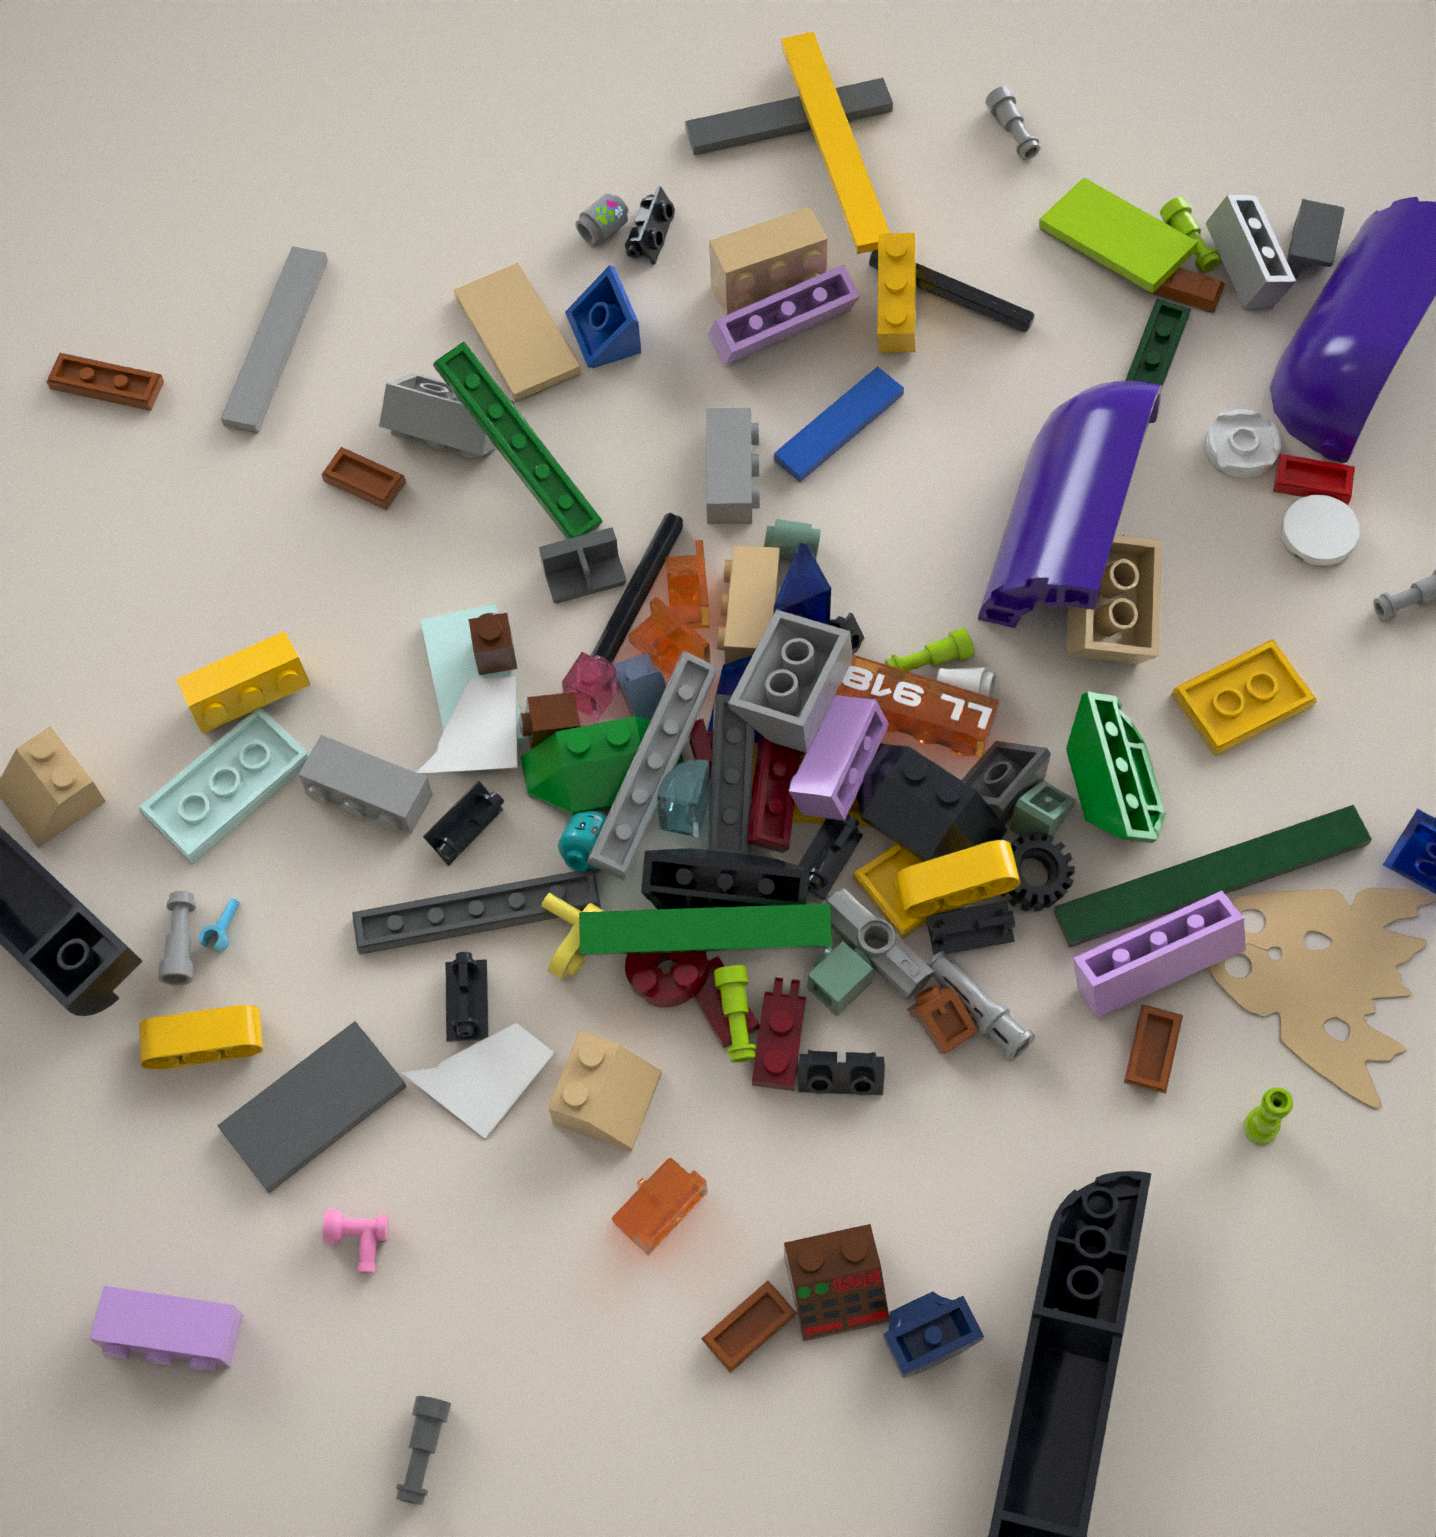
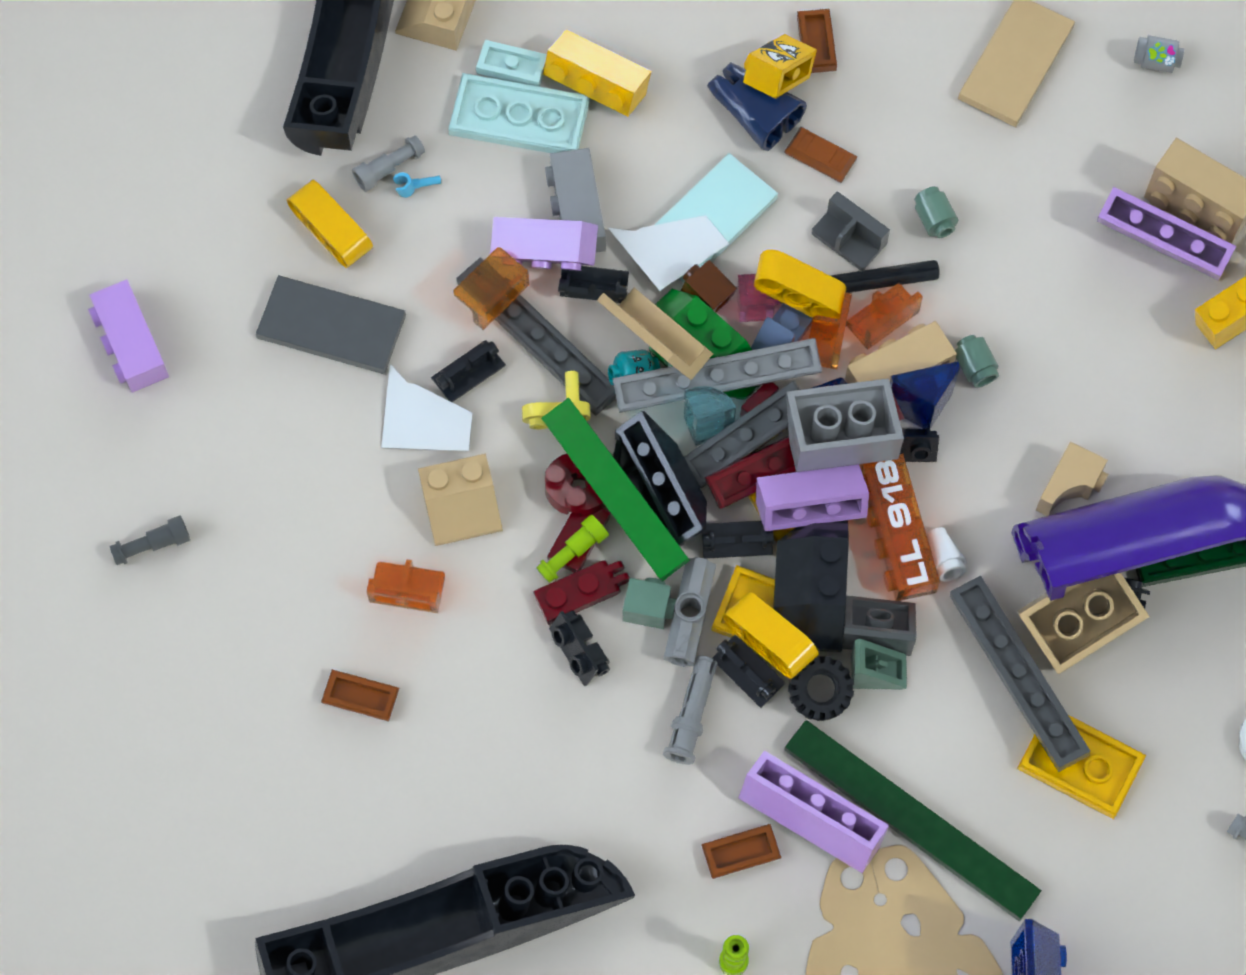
camera: 55 degrees right, 5 degrees up
(166, 755) = (511, 63): none -> light aqua plate
(369, 1230) = (258, 393): bright pink piece -> none
(370, 518) = (779, 66): none -> yellow brick
(389, 565) = (756, 111): none -> dark blue piece
(392, 837) = (546, 241): none -> lavender brick
(399, 914) = (492, 286): none -> clear orange panel
(434, 413) = (907, 58): light grey slope -> none
(481, 545) = (820, 154): none -> dark orange tile
(492, 643) = (738, 210): reddish brown brick -> none
(517, 442) = (908, 120): green tile -> none
(571, 786) = (659, 332): none -> tan fence
(605, 321) = (1067, 114): blue slope -> none
(614, 634) = (799, 285): none -> yellow beam
(619, 483) = (935, 212): none -> sand green brick
(655, 218) = (1186, 92): black hinge -> none
(731, 465) = (1008, 278): light grey brick -> none
(836, 1282) = (425, 732): reddish brown slope -> none
(838, 424) = (1106, 333): blue tile -> none
(930, 1332) = (429, 814): dark blue slope -> none
(943, 1017) = (664, 691): dark orange bracket -> none
(955, 646) = (970, 527): lime piece -> none
(961, 530) = (1074, 477): none -> tan arch
(1114, 771) = (942, 701): green wedge -> none
(1136, 689) = (1020, 674): none -> dark grey plate

